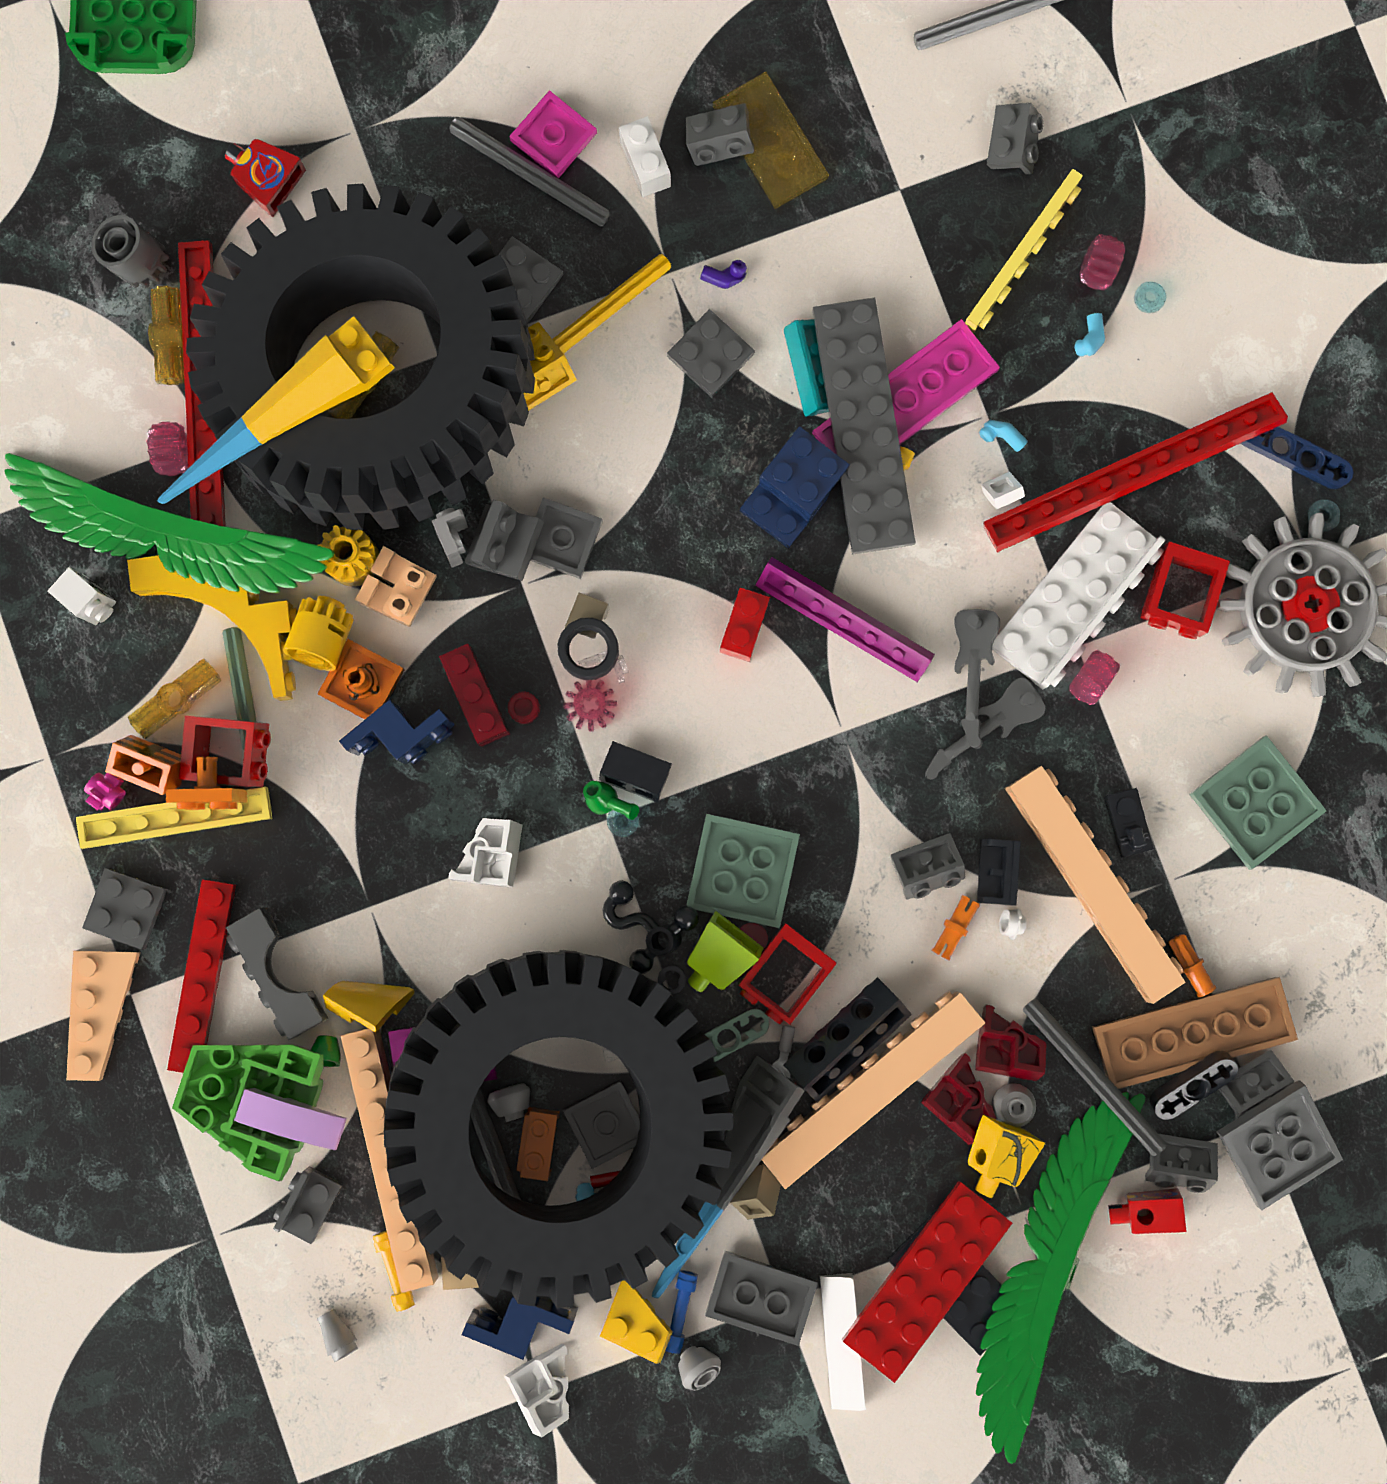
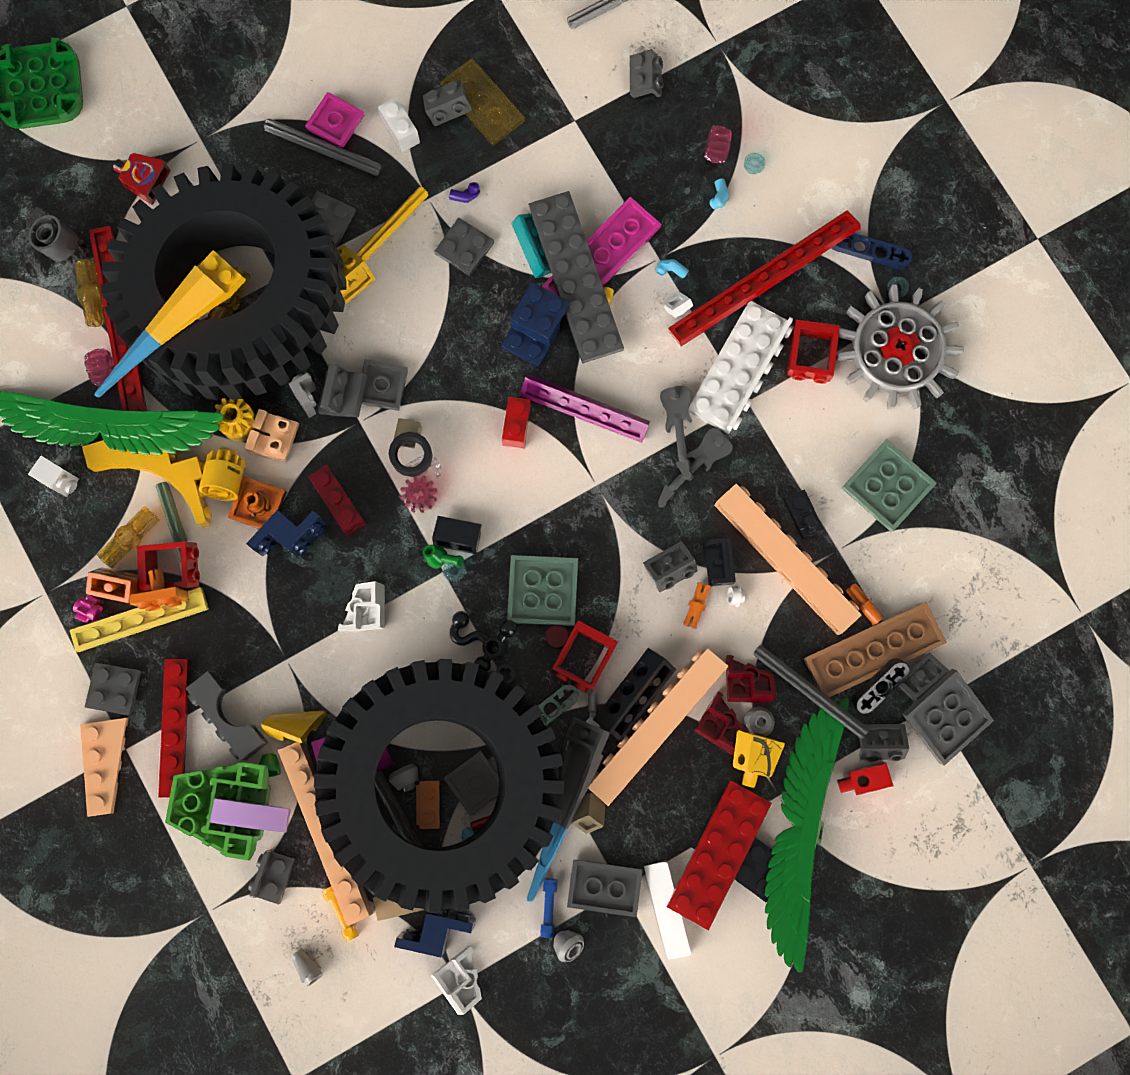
camera: 10 degrees left, 5 degrees down
(523, 707) = (373, 504): dark red tile -> none
(635, 1325) = (518, 921): yellow wing -> none
(721, 954) = (536, 649): lime torso -> none
(1031, 243) = (668, 139): light yellow plate -> none
(1094, 677) = (761, 418): clear pink gear -> none

